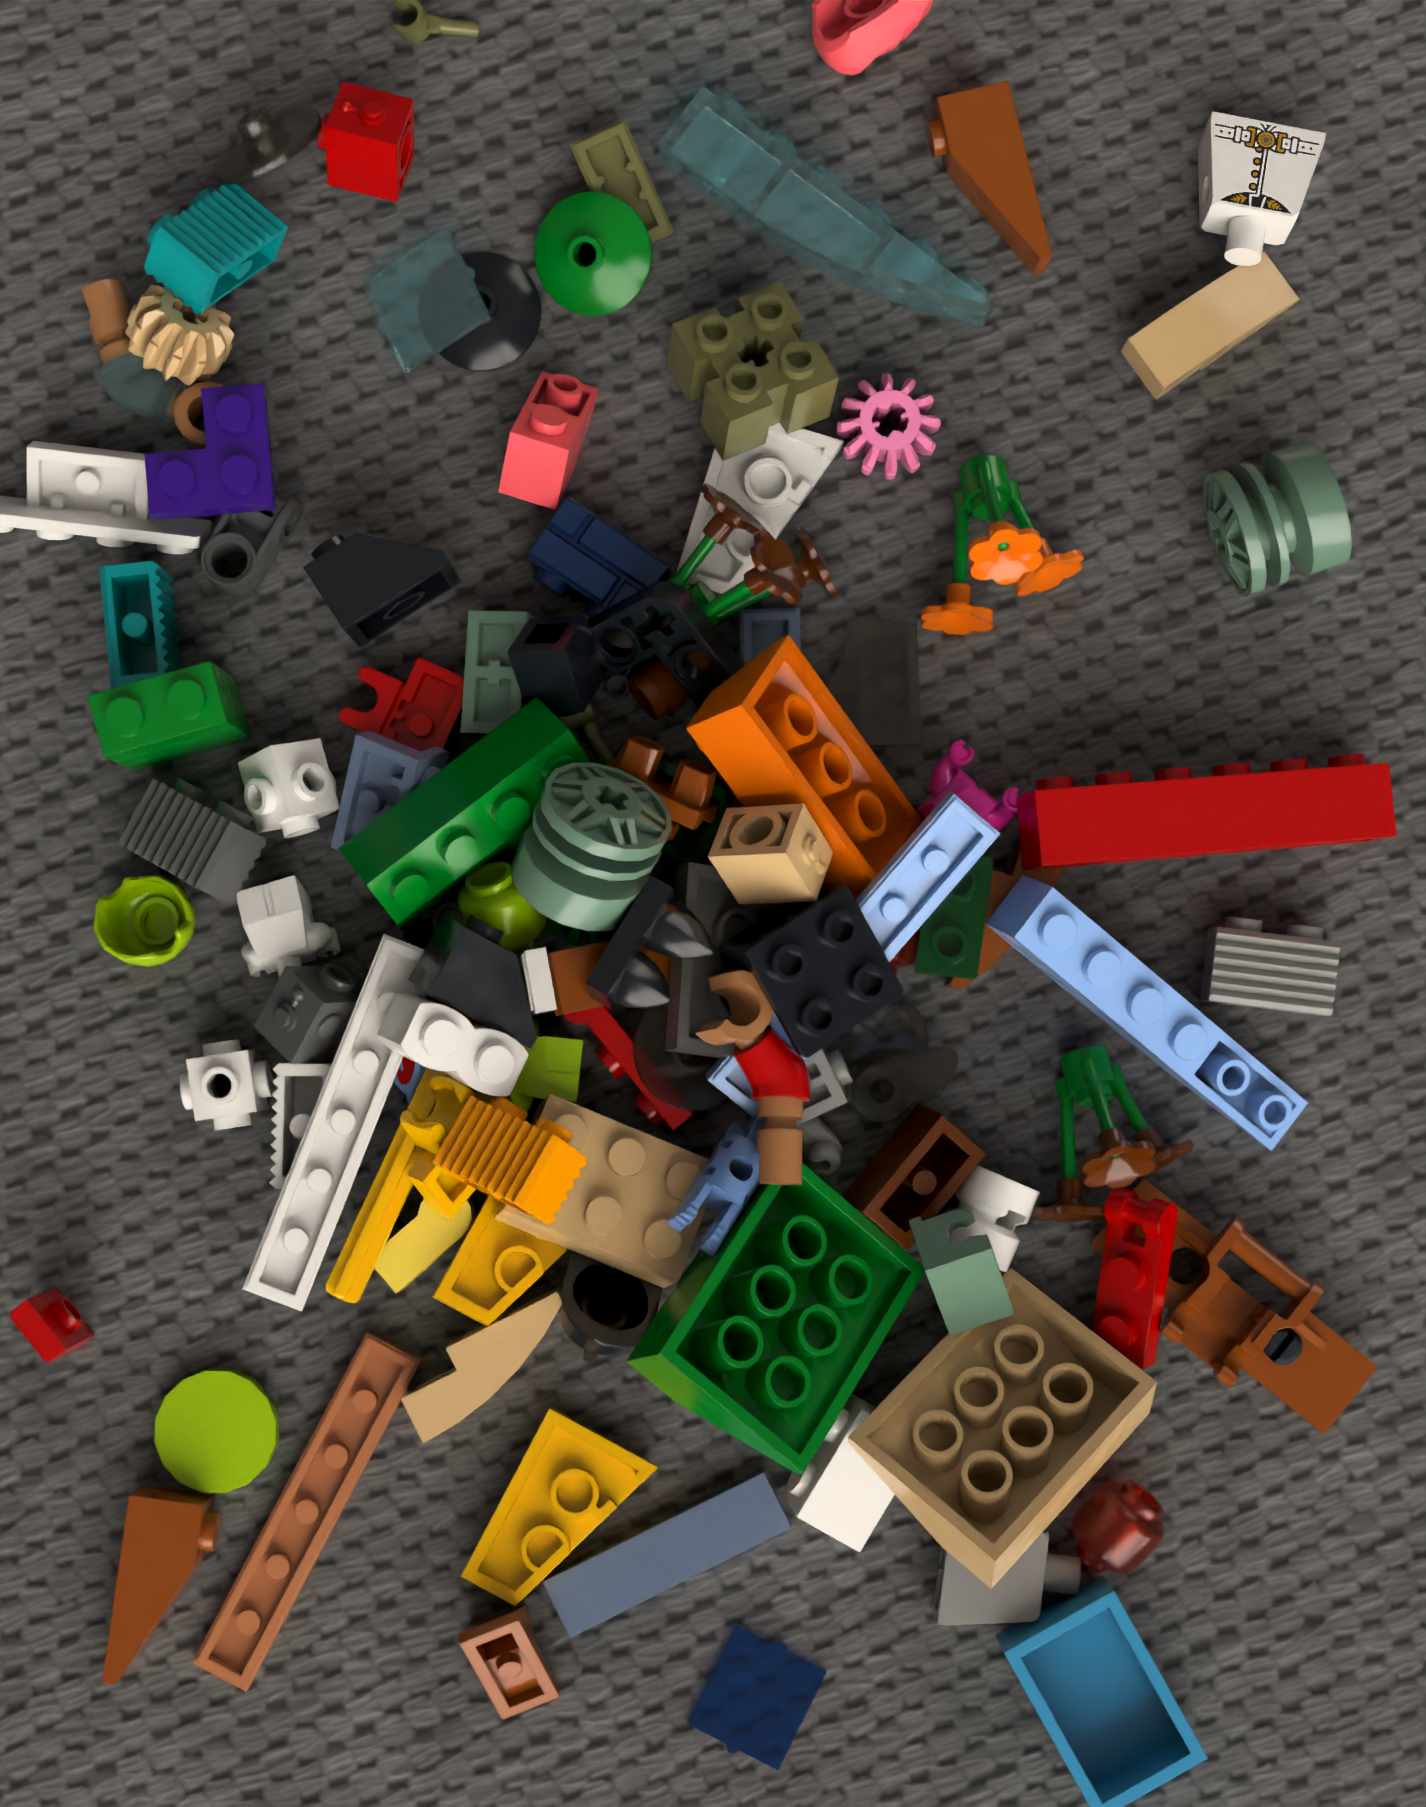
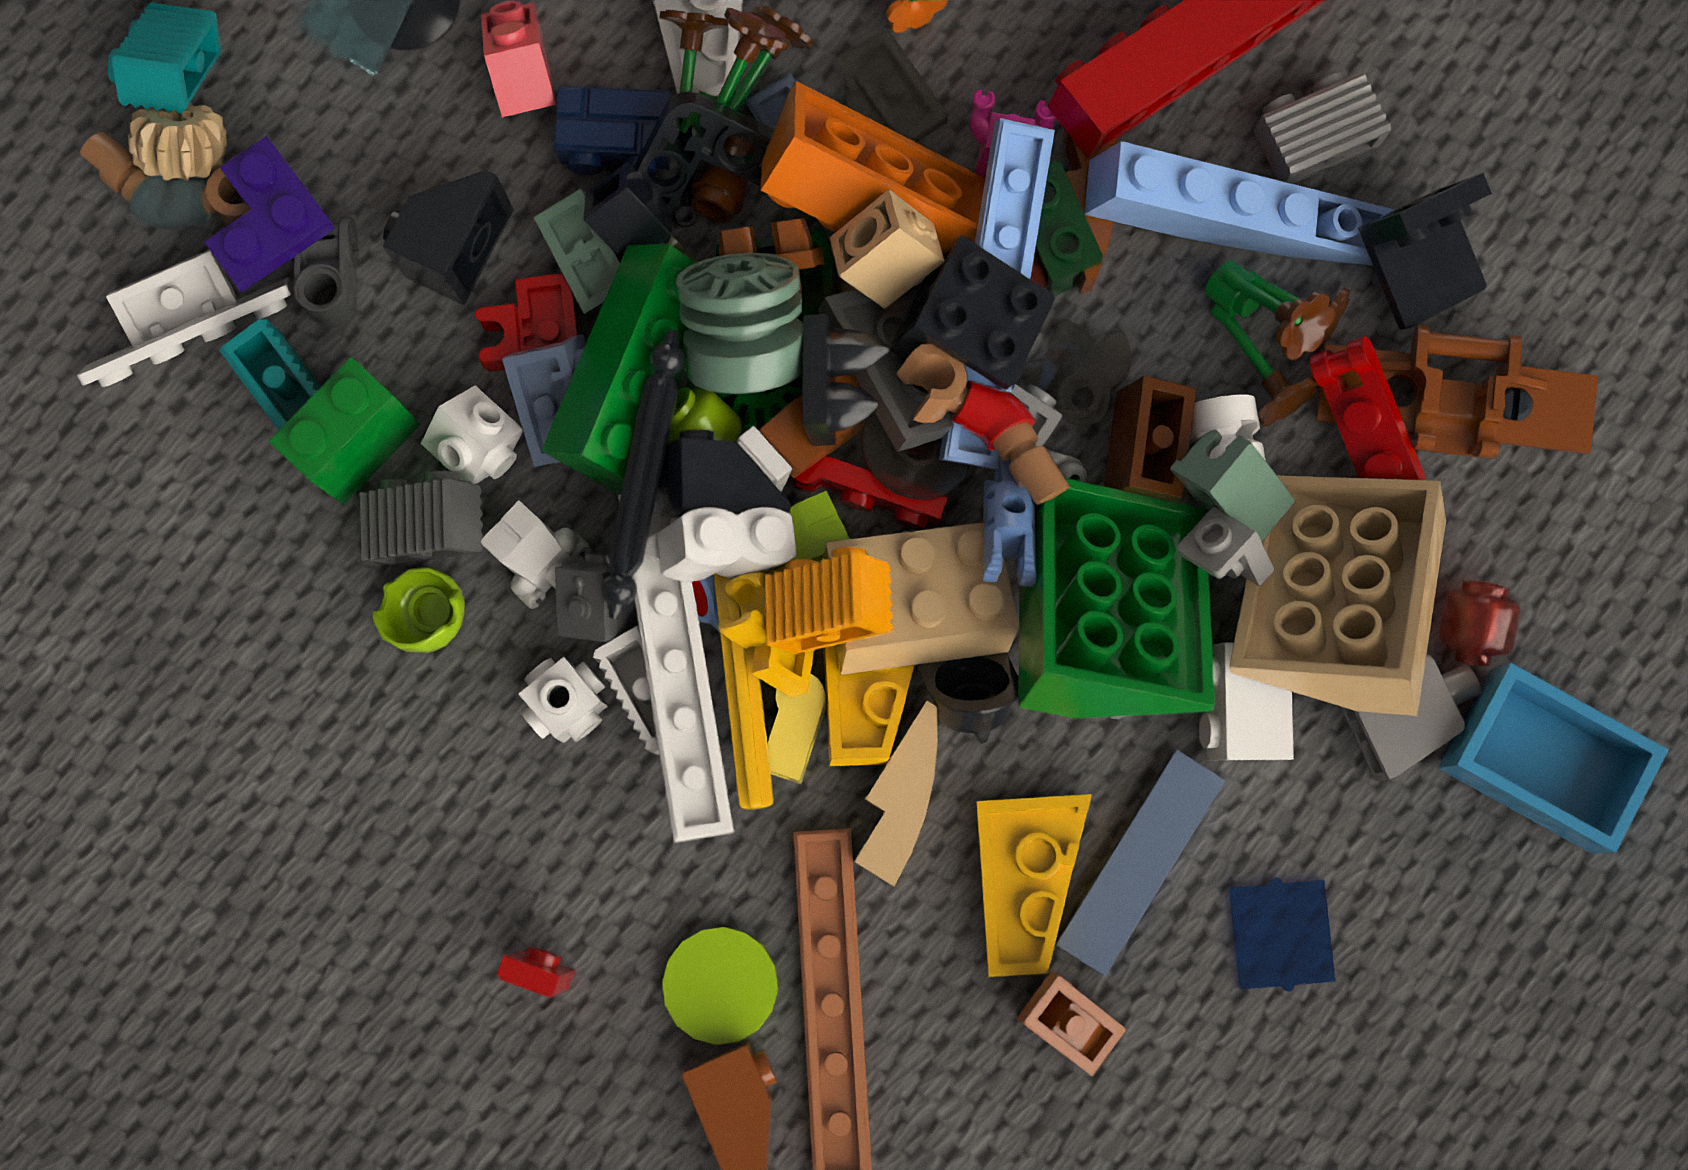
camera: 30 degrees left, 5 degrees down
(414, 933) = (643, 474): none -> black wheel
(912, 1322) = (1226, 548): none -> light grey bracket
(1290, 1152) = (1425, 252): none -> black bracket

